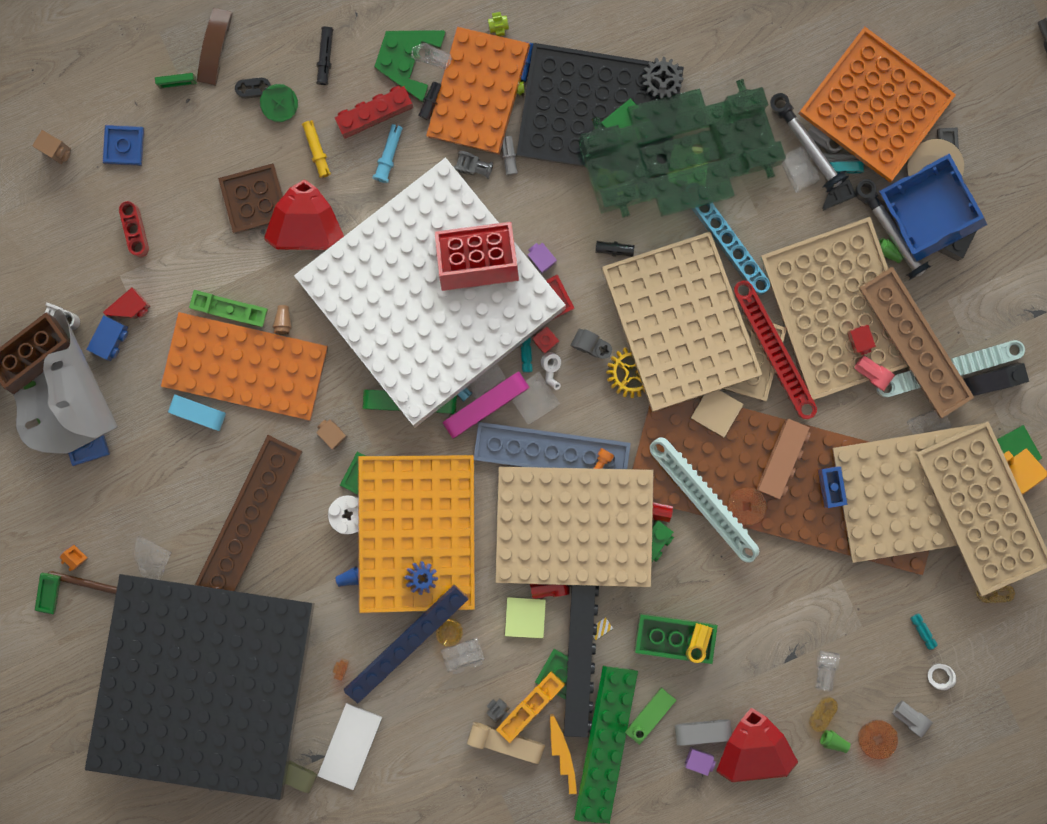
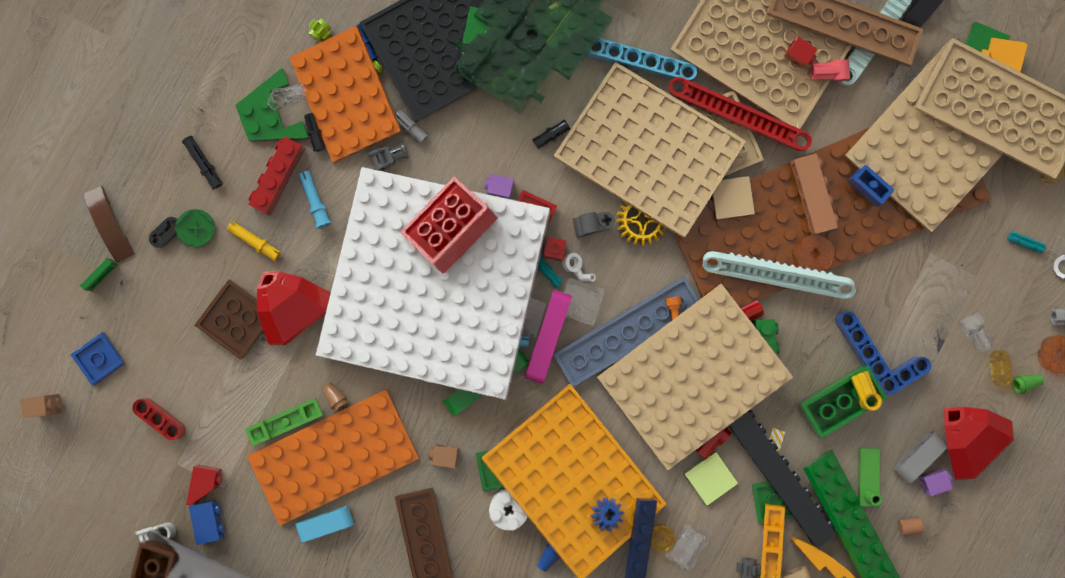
camera: 45 degrees left, 0 degrees up
(651, 780) = (910, 526): none -> nougat piece
(732, 652) = (876, 358): none -> blue beam

